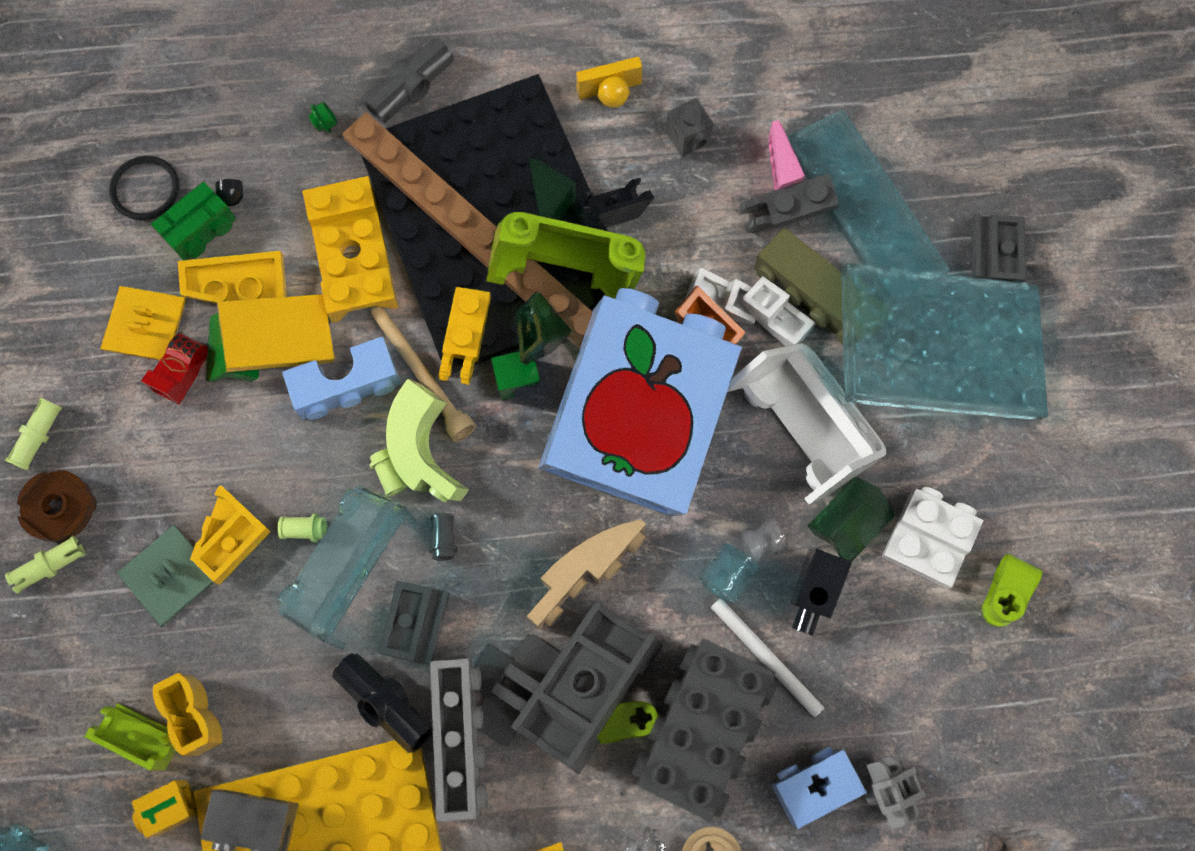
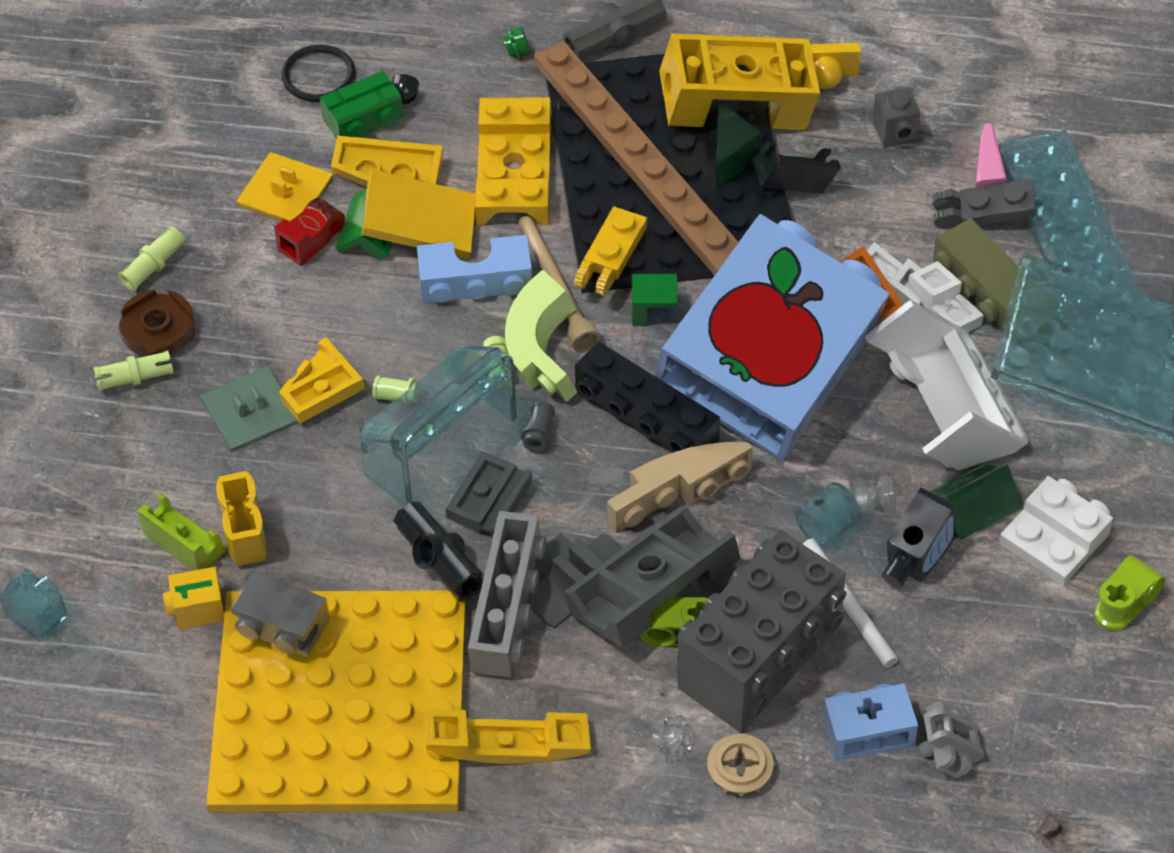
camera: 15 degrees right, 20 degrees down
(505, 126) = (705, 69): none -> yellow plate
(535, 492) = (644, 401): none -> black brick
(539, 329) = (690, 257): clear green slope -> none
(611, 257) = (728, 176): lime windscreen -> none

